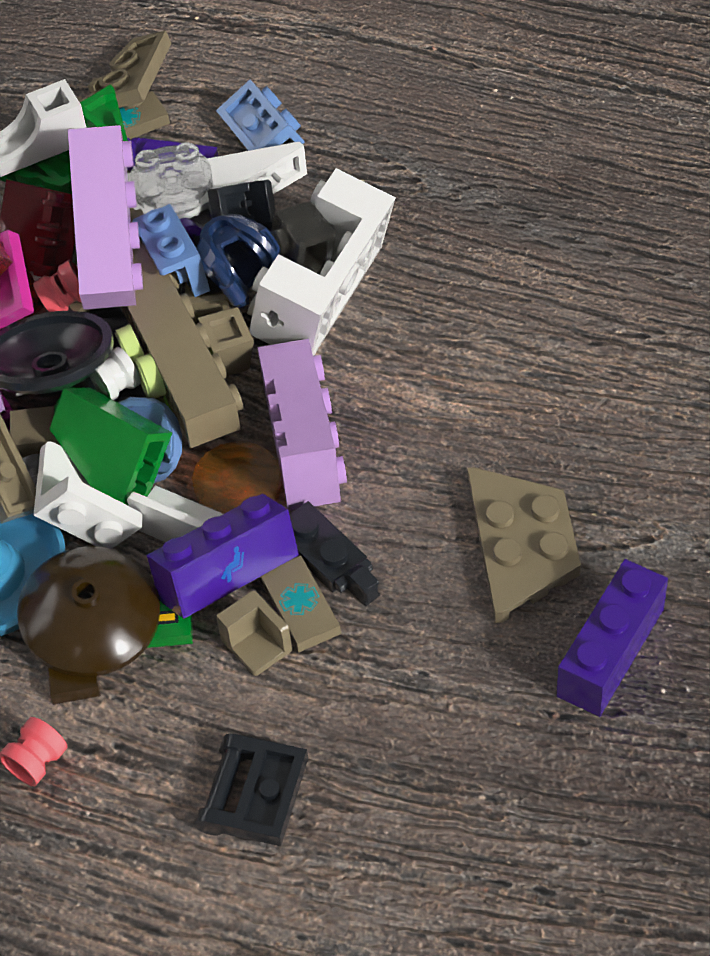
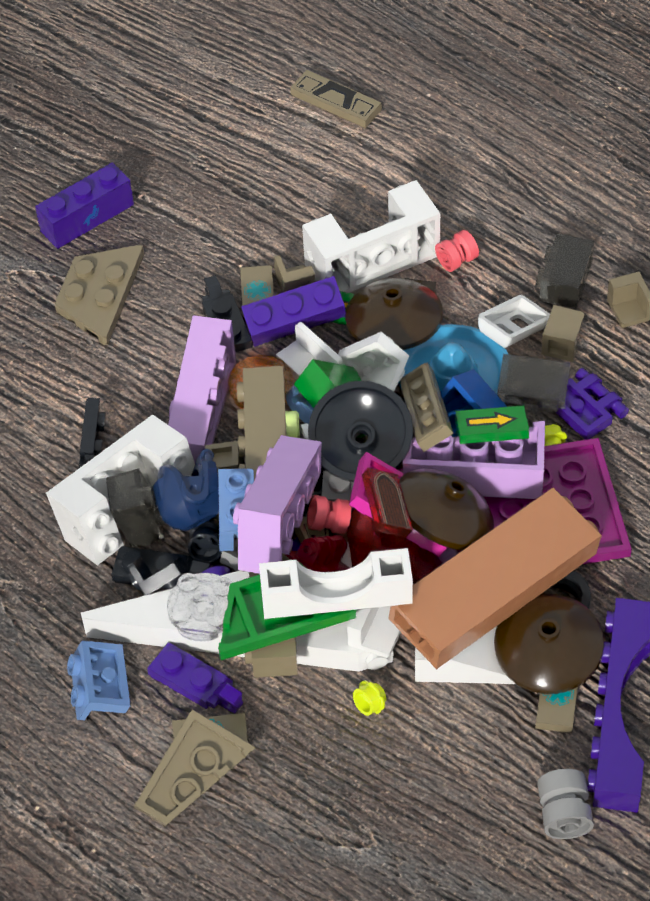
camera: 160 degrees left, 0 degrees up
(102, 717) = (403, 242): none -> white plate
(267, 793) = (329, 190): black plate -> none
(404, 329) = (93, 423): none -> black hinge

